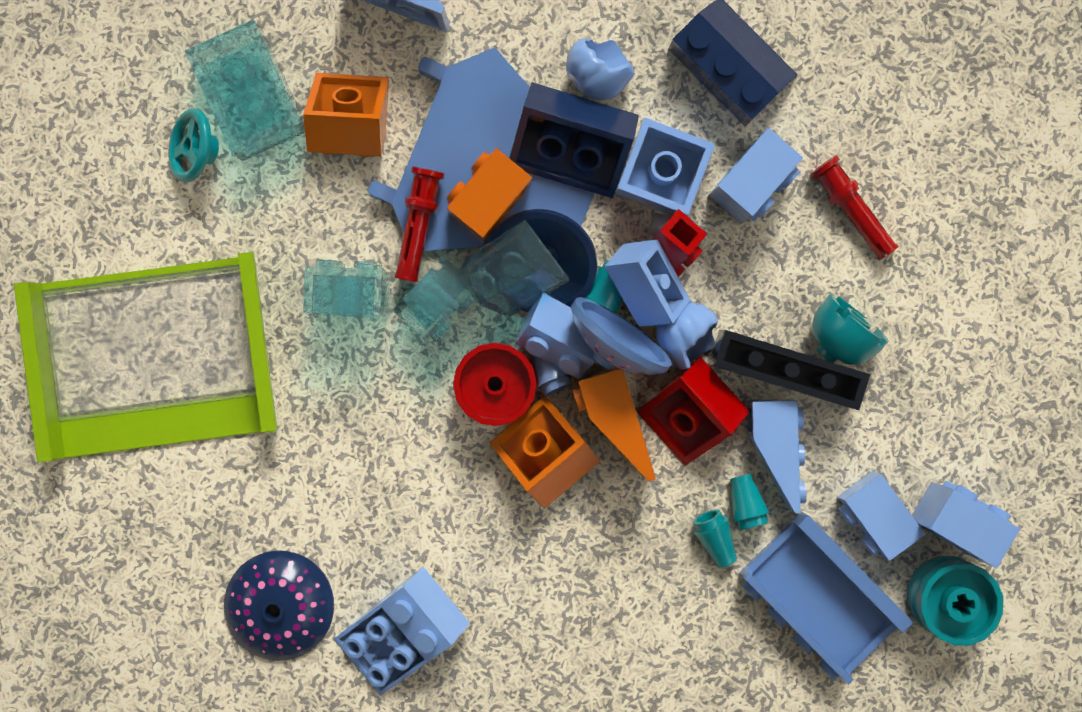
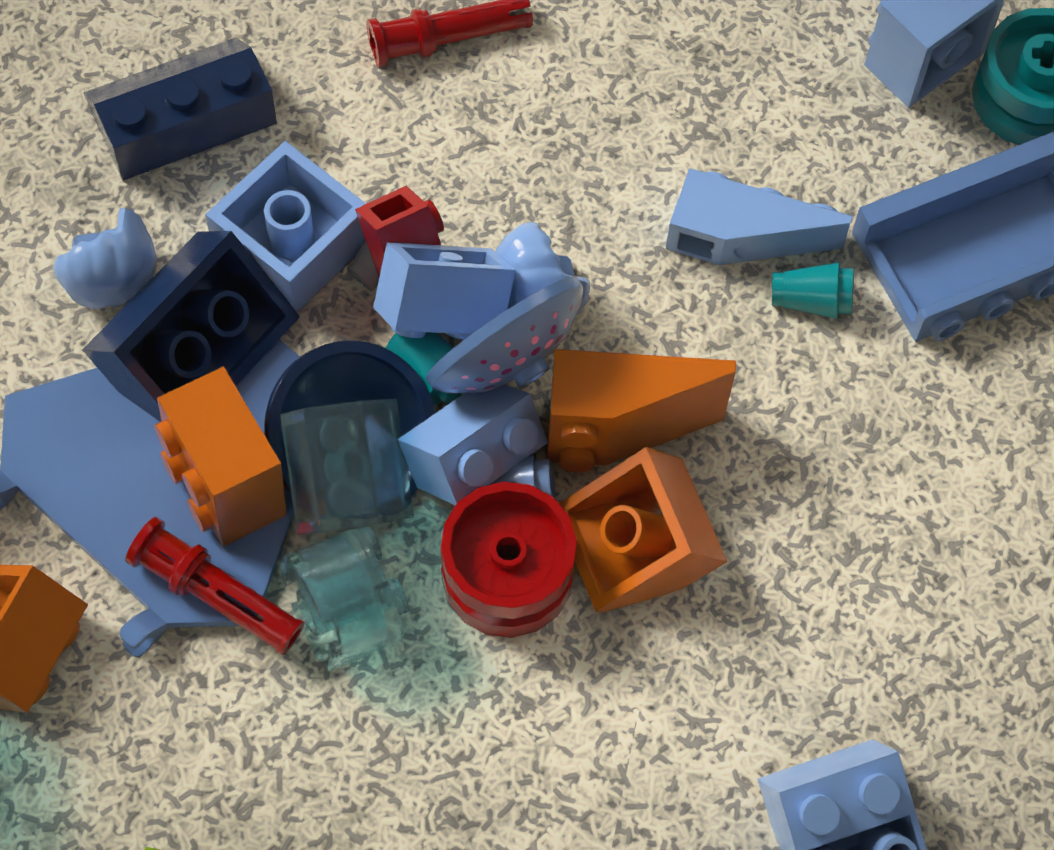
camera: 70 degrees left, 25 degrees down
(347, 291) = (273, 718): clear light blue brick -> none
(693, 412) = (658, 304): red slope -> none
(716, 537) = (851, 347): teal cone -> none
(759, 172) = (354, 113): light blue brick -> none
(789, 369) = (639, 169): black brick -> none
(845, 333) = (617, 84): teal cylinder -> none
(880, 515) = (891, 131): light blue brick -> none

